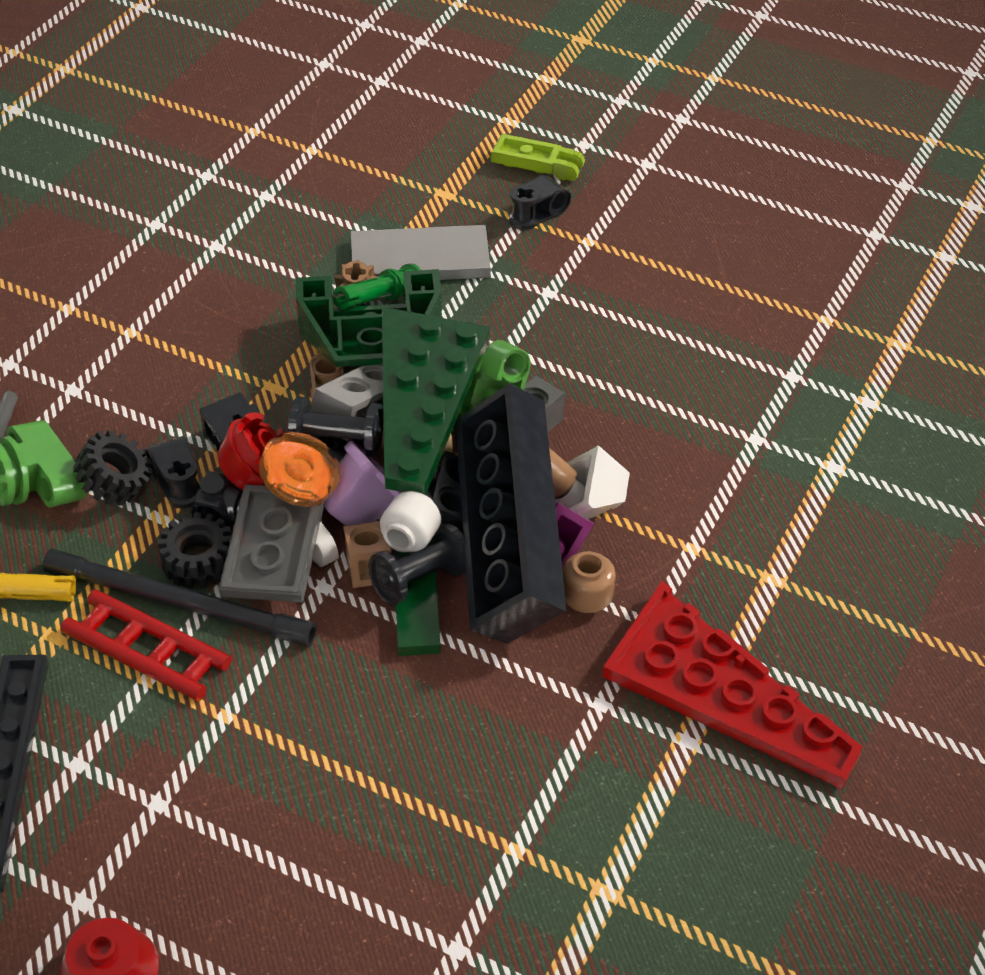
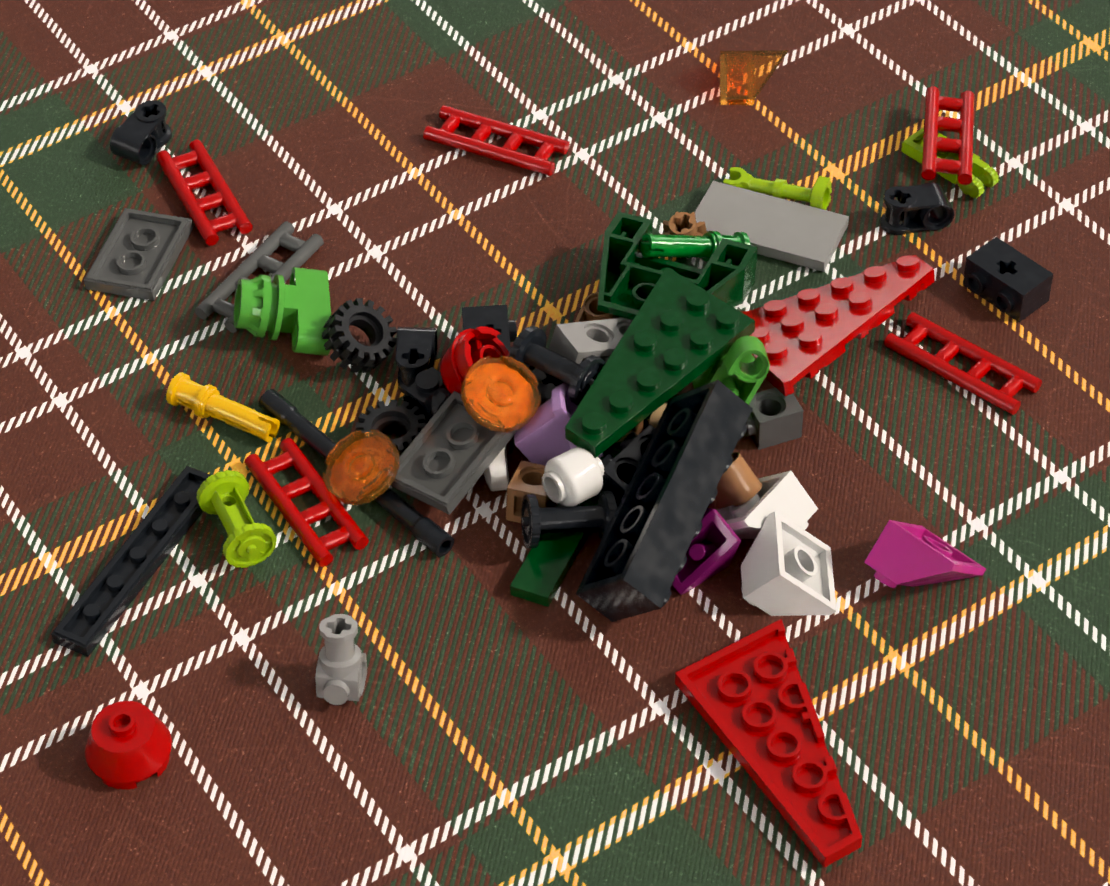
camera: 30 degrees right, 0 degrees up
(114, 248) = (506, 153): none -> red bar
(114, 704) = (246, 540): none -> lime hose
(191, 589) = (361, 467): none -> clear orange tile
(286, 786) = (340, 664): none -> light grey connector
(322, 137) = (745, 74): none -> clear orange slope
(447, 217) = (817, 196): none -> lime piece
(523, 145) = (933, 143): none -> red bar
(535, 305) = (817, 323): none -> wing
(588, 582) = (709, 593): medium nougat head -> none
(638, 537) = (788, 571): none -> white slope
(648, 233) = (1007, 279): none -> black brick
(669, 324) = (967, 380): none -> red bar
(737, 485) = (917, 557): none -> dark pink slope

